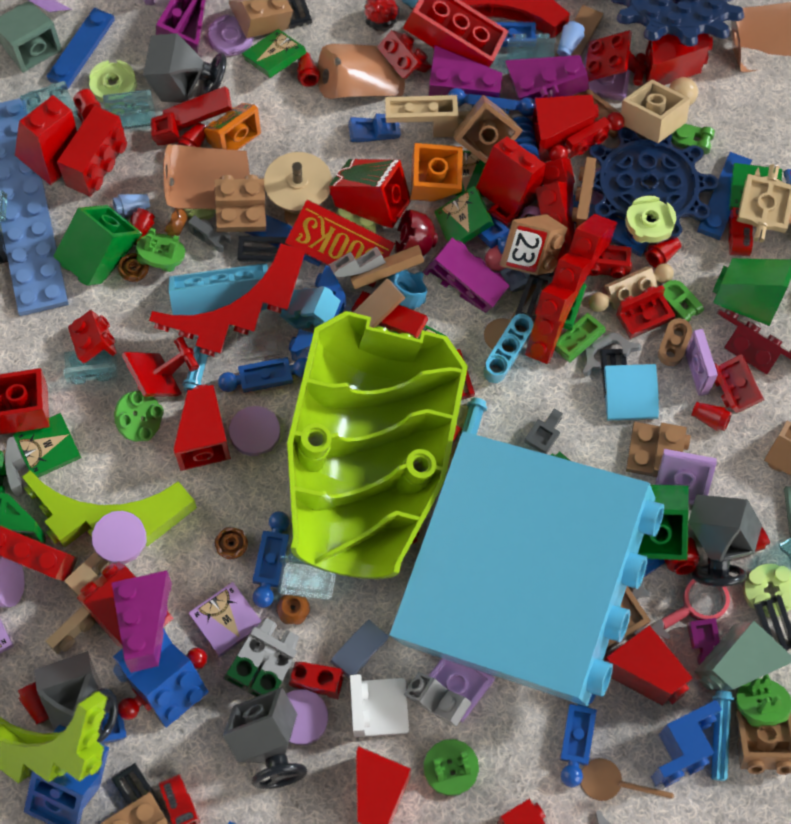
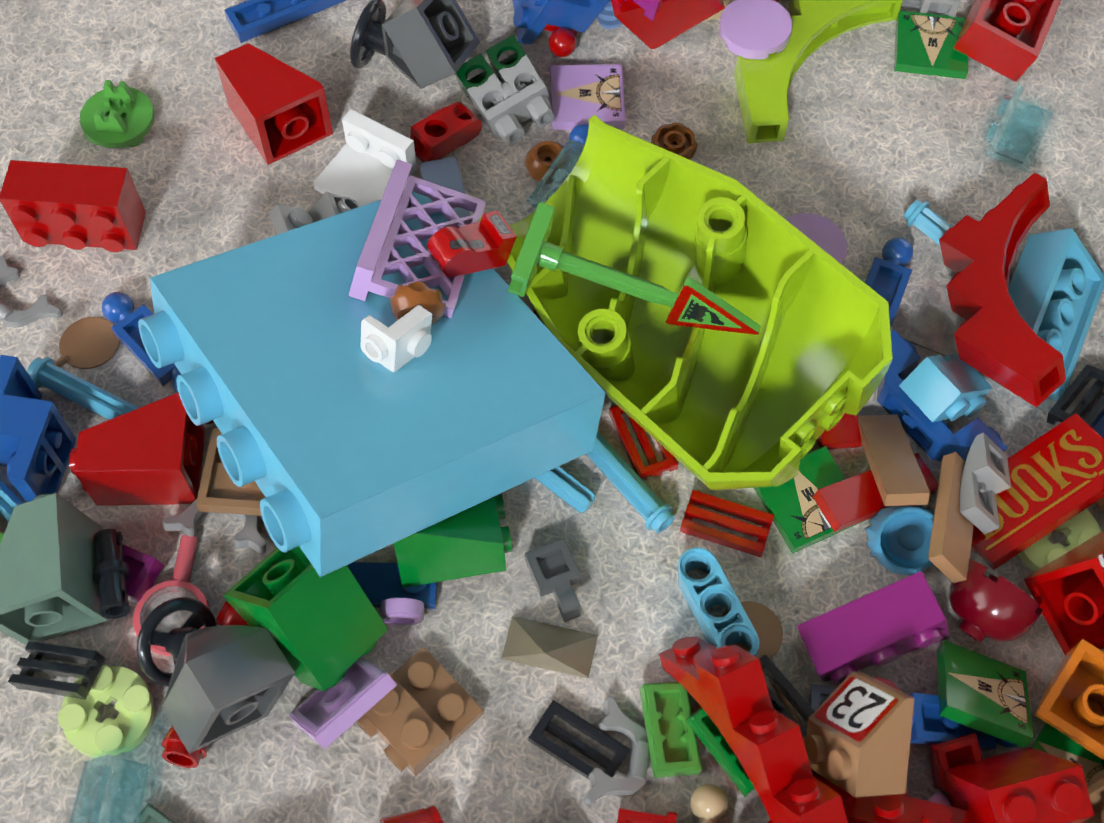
camera: 125 degrees right, 5 degrees down
(91, 336) = (1056, 141): red bracket -> none
(131, 425) = (897, 118): bright green plate -> none
(154, 375) = (959, 172): red plate -> none
(201, 430) = (845, 176): red slope -> none
(310, 719) = (408, 104): lavender tile -> none
(404, 518) = (689, 308): none -> bright green piece
(426, 552) = (473, 245): none -> red leg
(444, 610) = (390, 220): none -> lavender fence
(463, 763) = (226, 200): bright green plate -> none
(491, 544) = (416, 294): none -> dark orange plate
(517, 530) = (399, 342): none -> white bracket
(581, 415) = (549, 647): none -> dark tan slope
(631, 392) = (528, 736): medium azure slope -> none
(637, 760) = (66, 384): none -> medium azure axle
(716, 633) = (111, 574): none -> black pin

